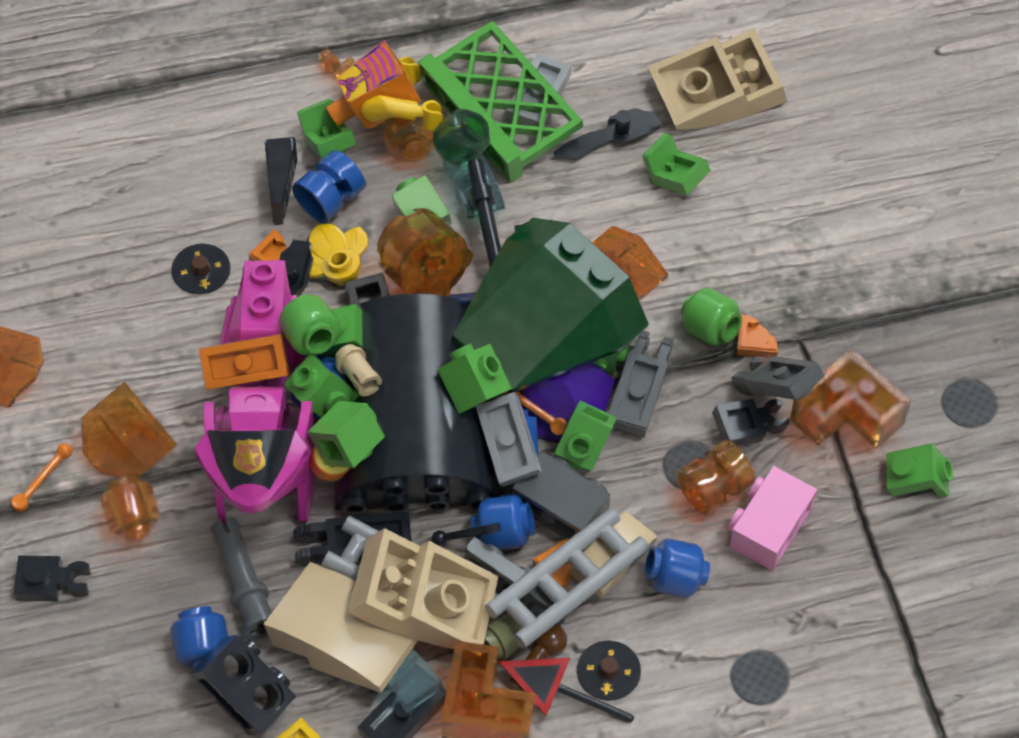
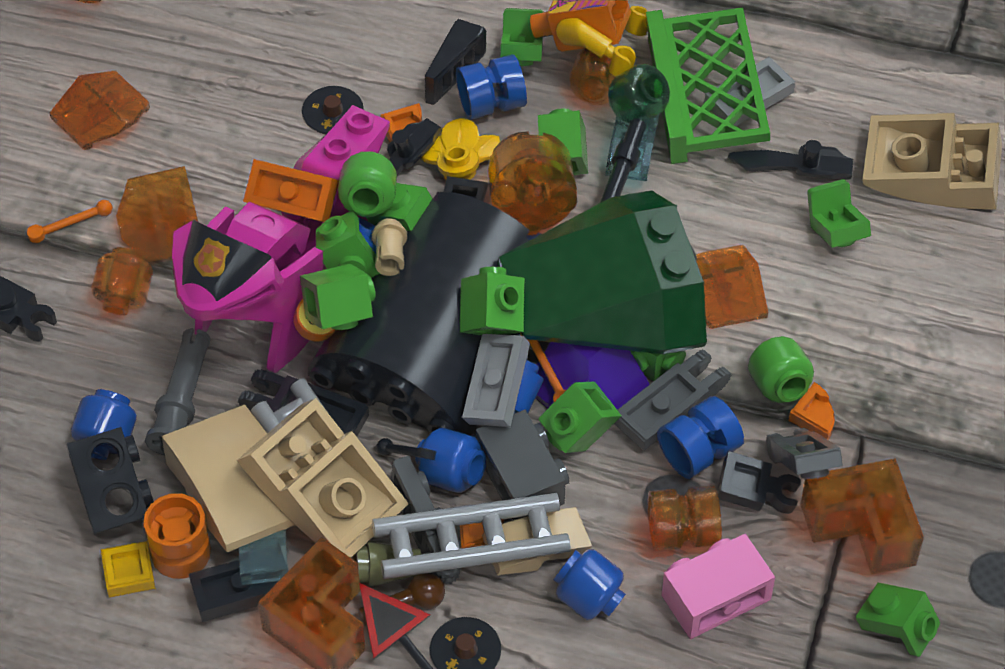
camera: 30 degrees right, 5 degrees down
(329, 699) = (177, 535): none -> orange wheel
(686, 404) = (697, 439): none -> blue wheel

